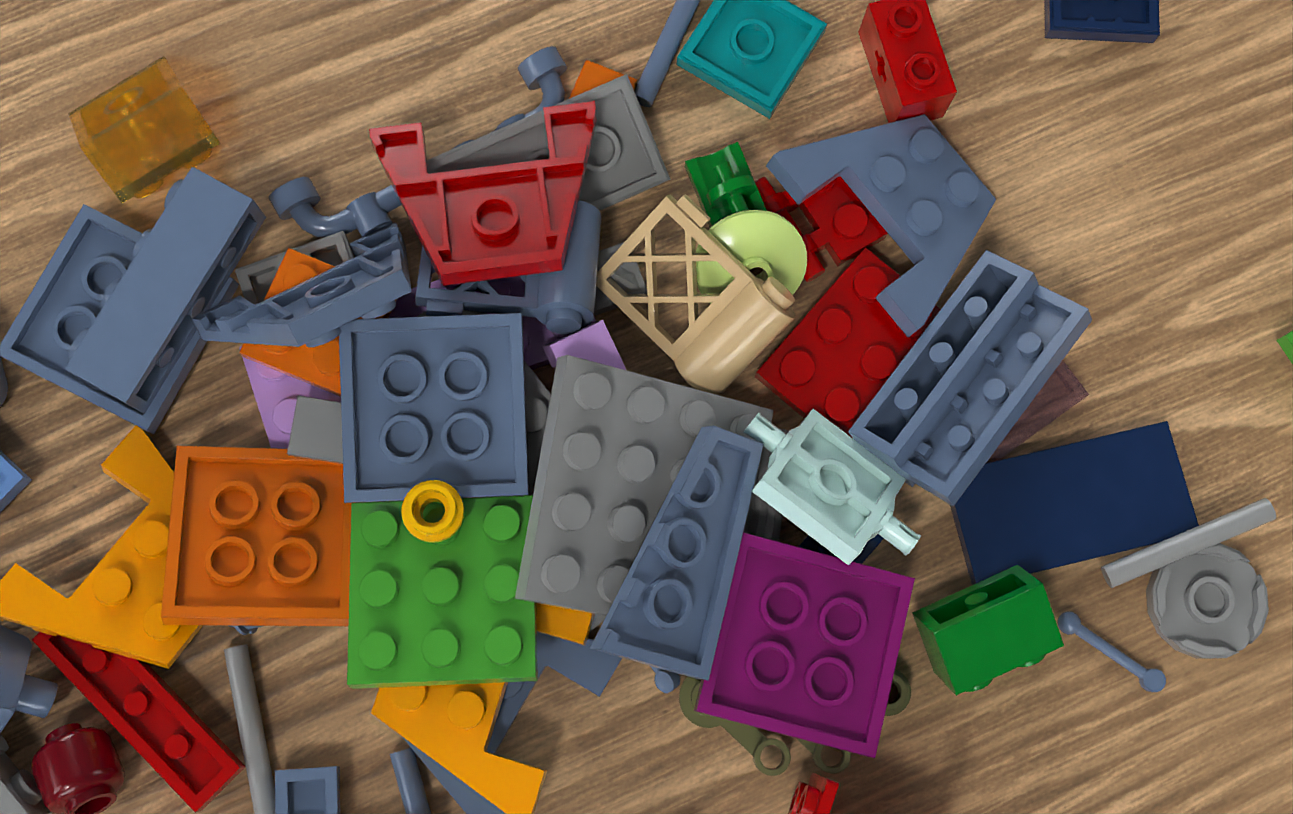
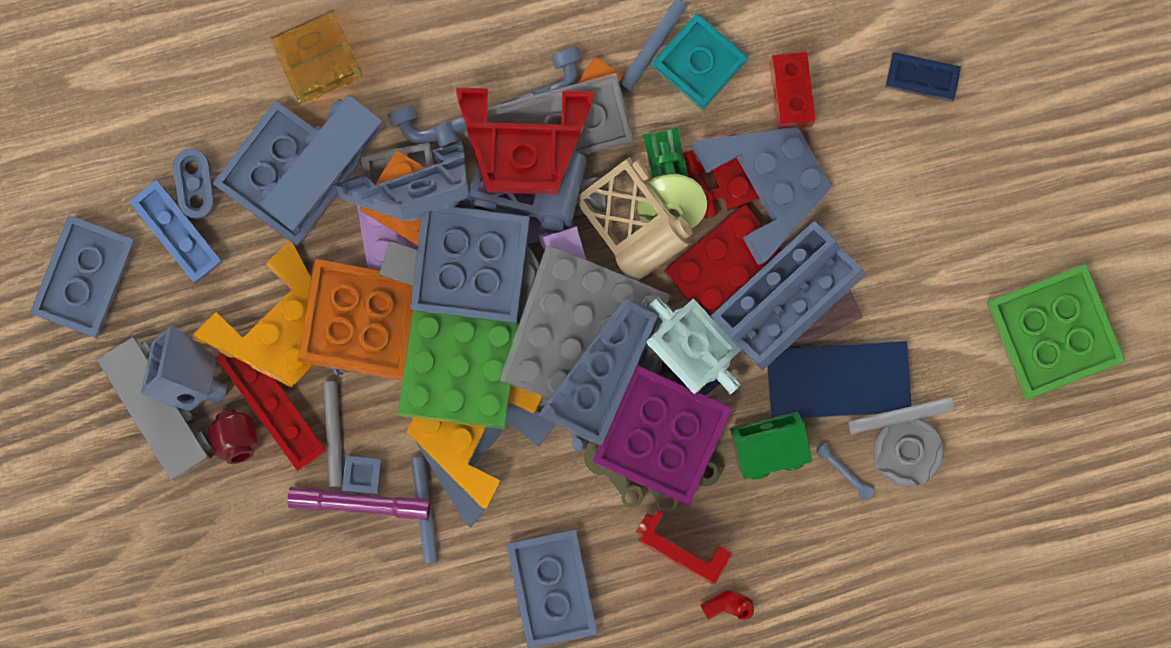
camera: 10 degrees right, 5 degrees up
(419, 498) = (461, 312): yellow plate -> none

